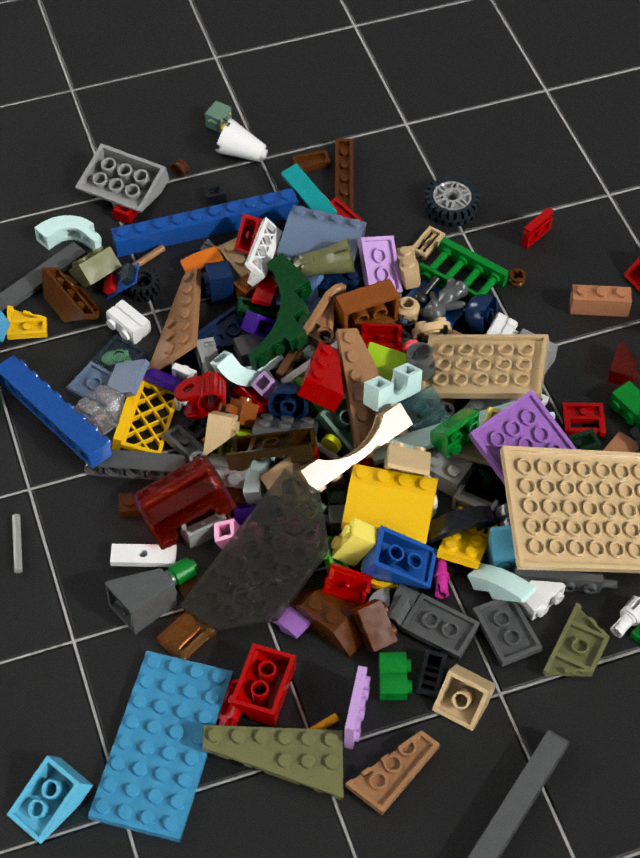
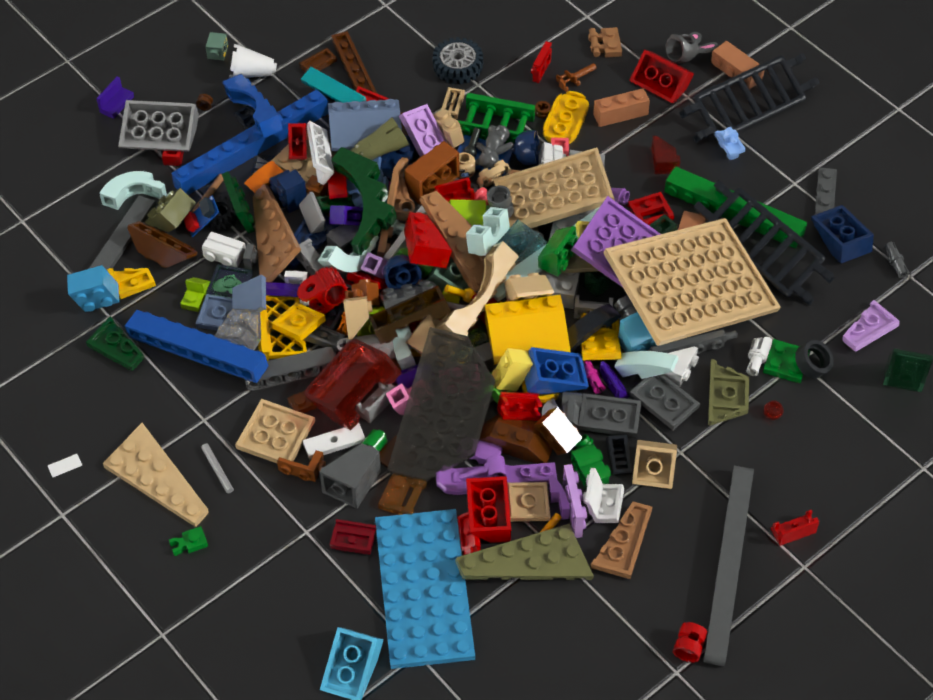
camera: 20 degrees left, 0 degrees up
(83, 353) = (194, 294): none -> lime slope
(89, 526) = (275, 432): none -> tan plate
(91, 137) = (113, 98): none -> dark purple panel
(99, 578) = (302, 471): none -> dark orange bracket
(115, 663) = (353, 537): none -> dark red plate
(149, 337) = (250, 256): none -> dark grey plate
(162, 278) = (240, 205): none -> dark green plate
(163, 419) = (298, 321): none -> yellow plate
(224, 199) = (265, 116): none -> blue arch
(228, 316) = (312, 213): none -> light grey slope
(292, 642) = (454, 480): none -> medium lavender piece
(311, 690) = (528, 501): none -> tan plate
(344, 694) = (558, 494): none -> medium lavender slope
(346, 446) = (465, 294): none -> yellow bar
(388, 716) = (602, 499): none -> white bracket
(399, 646) = (585, 441): none -> green plate
(461, 591) = (613, 381): none -> dark purple slope
(521, 318) = (564, 142): none -> coral plate
(537, 294) = (566, 116): none -> yellow tile
(555, 392) = (620, 195): none -> medium lavender cone
(566, 253) = (574, 76): none -> dark orange piece
(587, 825) = (795, 528): none -> red hinge
(621, 229) = (610, 42): none -> medium nougat plate
(622, 683) = (773, 410): none -> clear red plate

